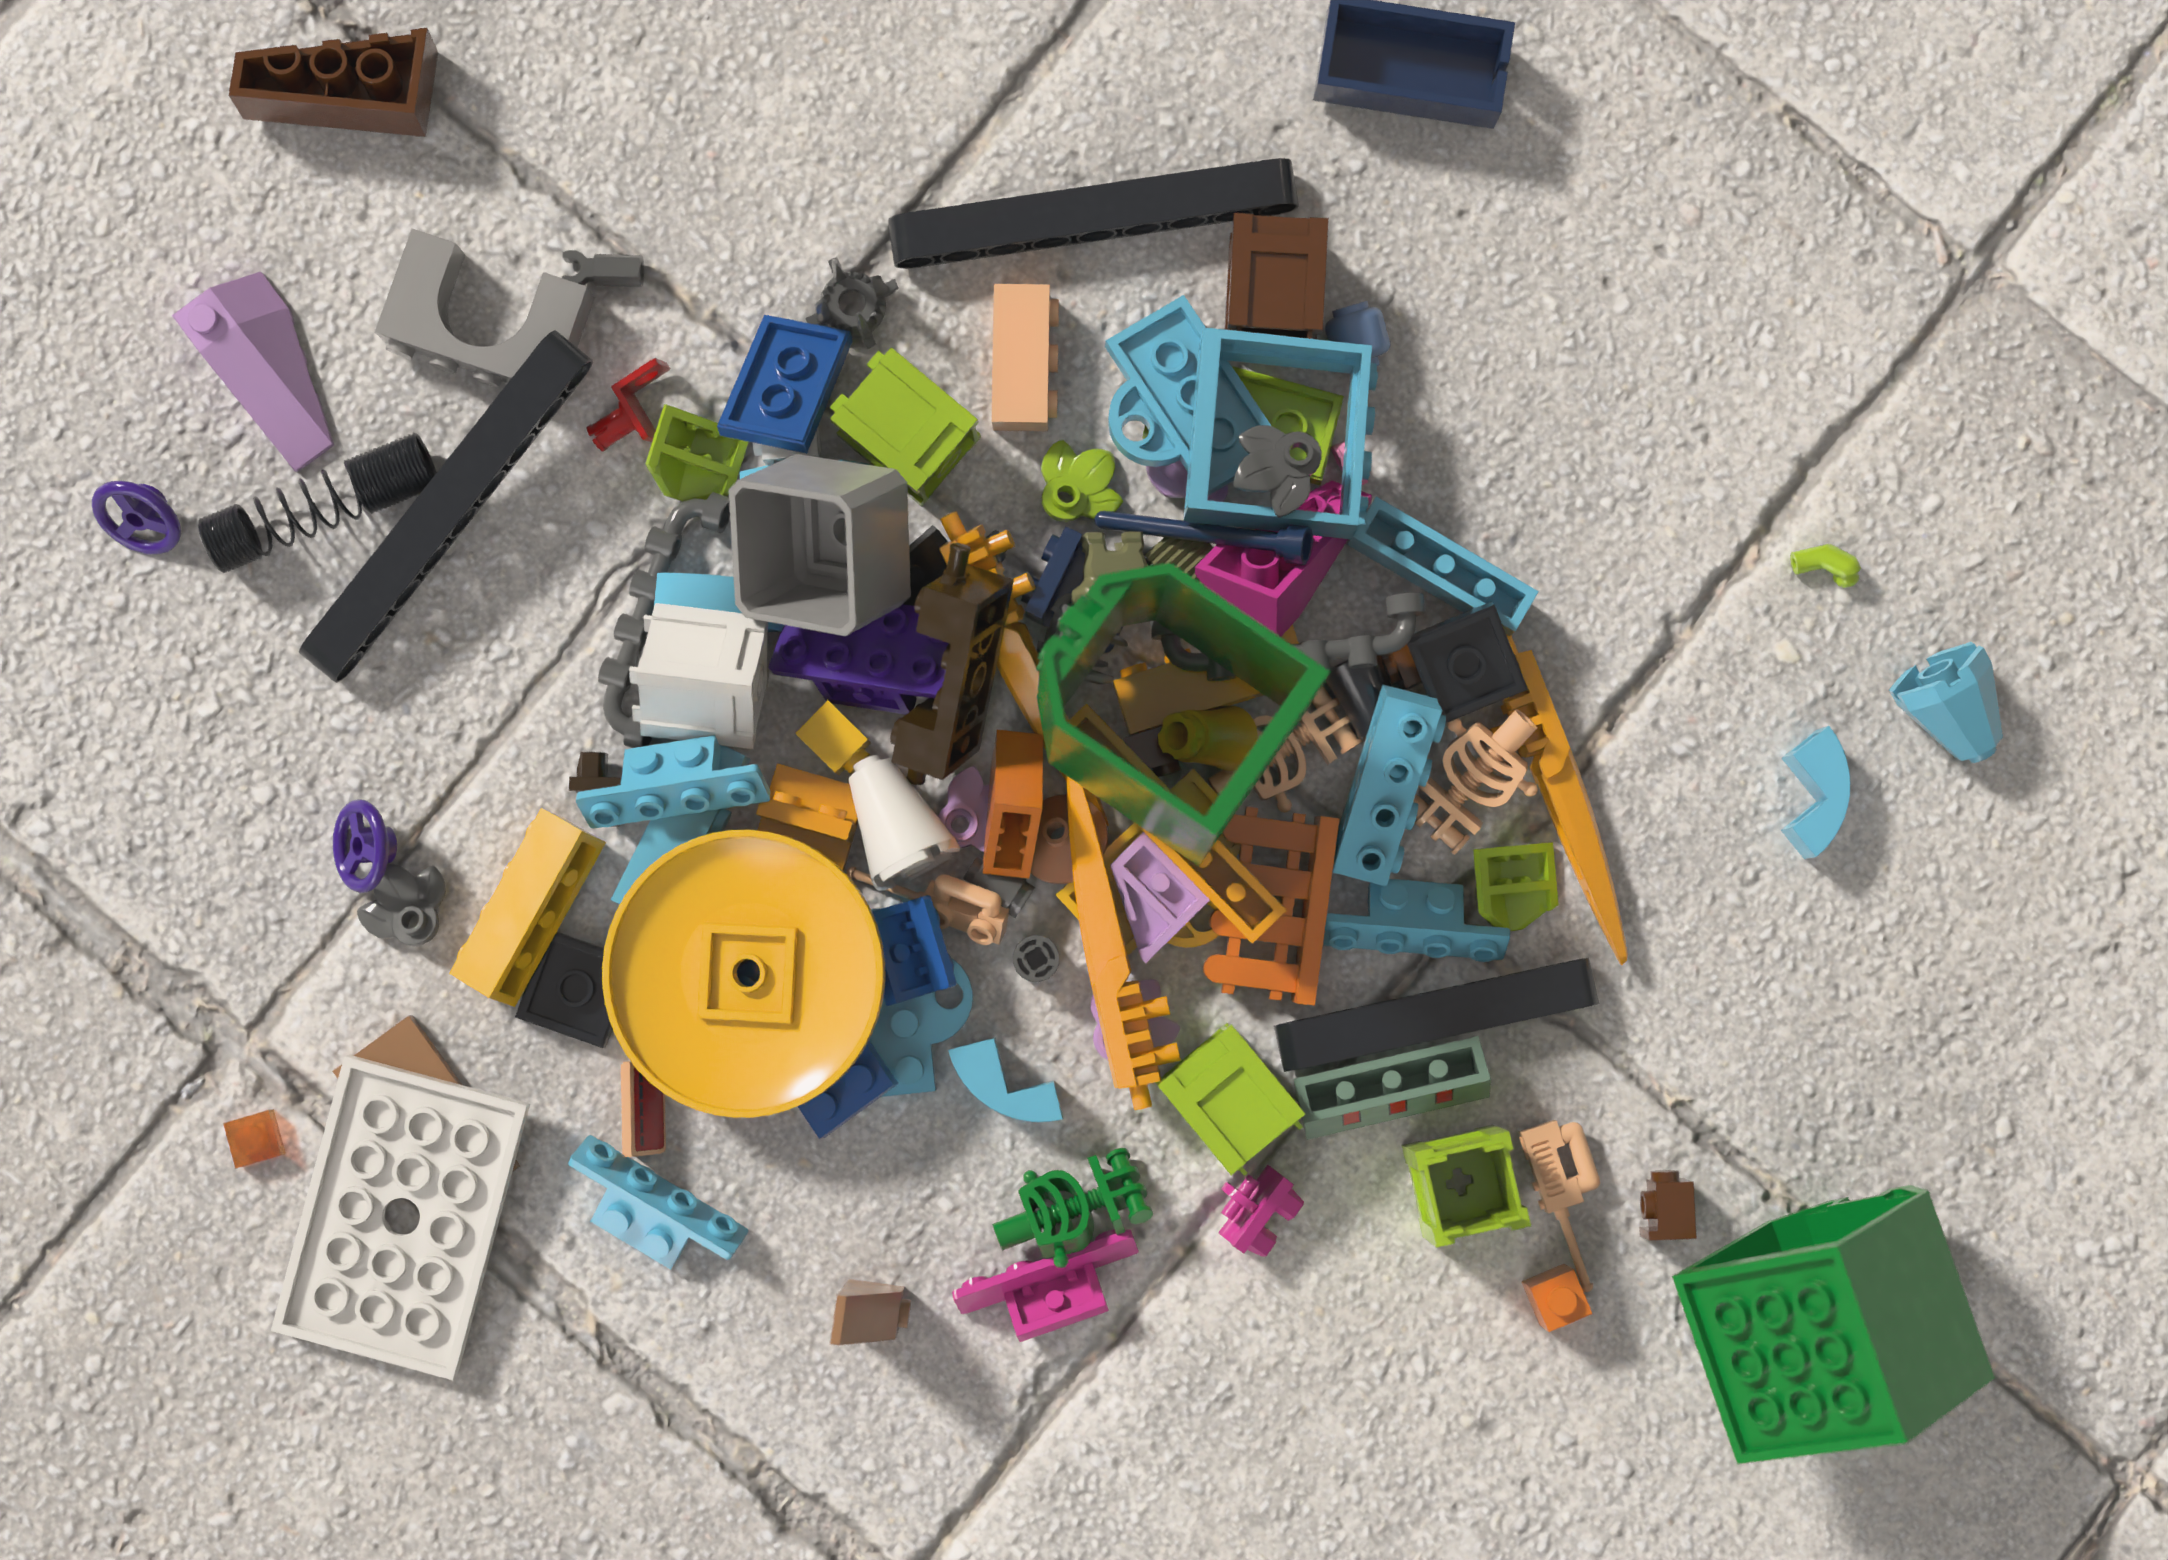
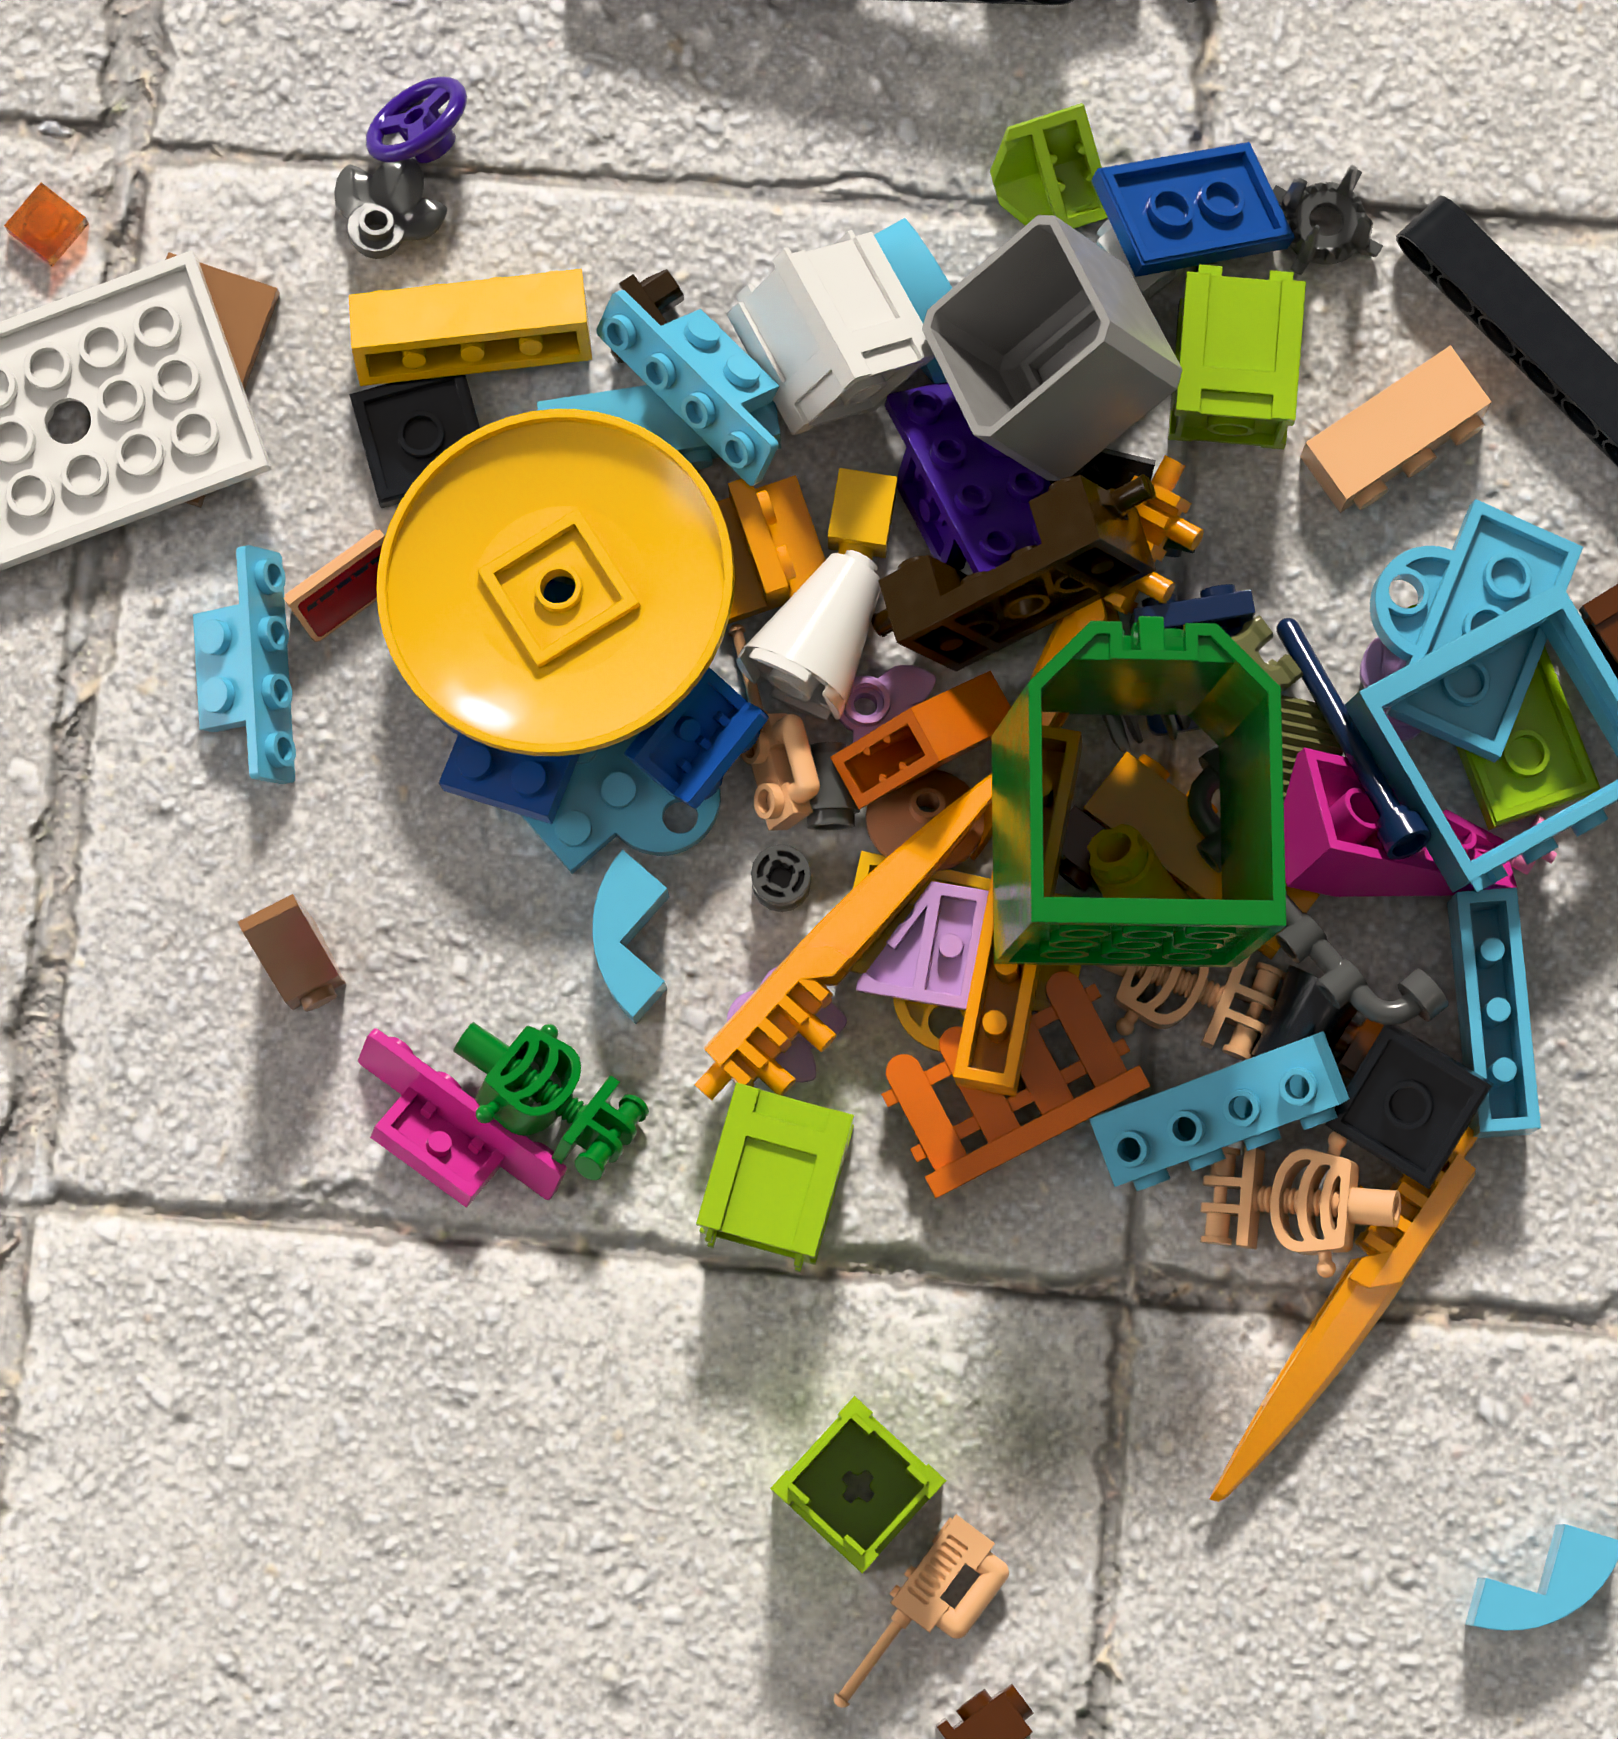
camera: 60 degrees right, 5 degrees down
(629, 414) = (1050, 78): red bracket -> none
(630, 629) = (937, 210): dark grey bar -> none
(1080, 476) = (1317, 579): lime plate -> none
(1252, 1208) = (679, 1281): dark pink hips -> none
(1274, 470) = (1463, 752): dark grey plate -> none
(1393, 1087) = (906, 1341): sand green brick -> none
(1416, 920) = (1101, 1248): medium azure bracket -> none
(1436, 1014) = (1019, 1339): black beam -> none
(1515, 883) = (1214, 1326): lime slope -> none
(1556, 1297) = (807, 1673): orange brick -> none

